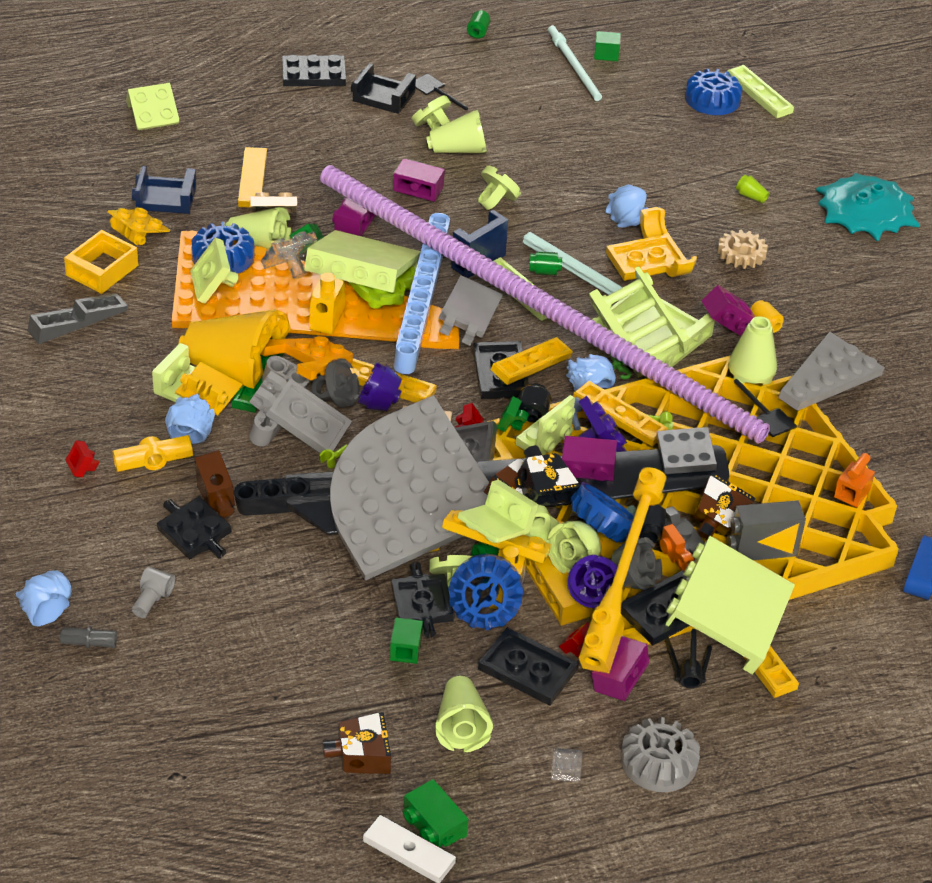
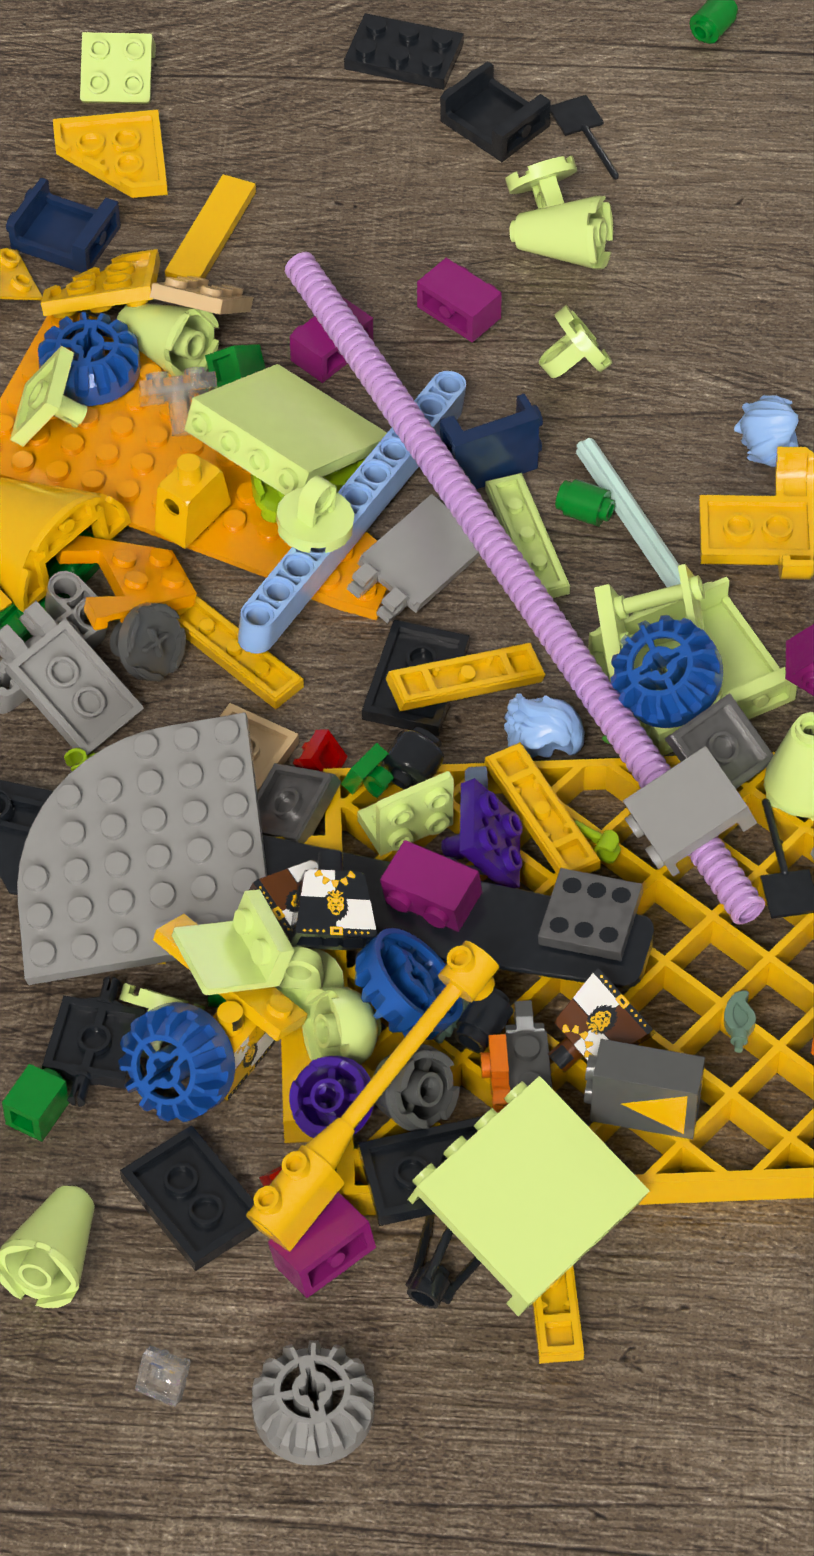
camera: 25 degrees right, 10 degrees up
(175, 146) = (116, 149): none -> yellow plate
(215, 209) = (122, 282): none -> yellow plate
(380, 388) = (205, 666): dark purple cone -> none
(411, 292) = (315, 517): none -> yellowish green tile
(652, 333) = (682, 691): none -> blue gear
(700, 358) = (728, 738): none -> flat silver tile
(704, 389) = (686, 809): none -> light grey panel
(787, 488) = (739, 1020): none -> sand green piece

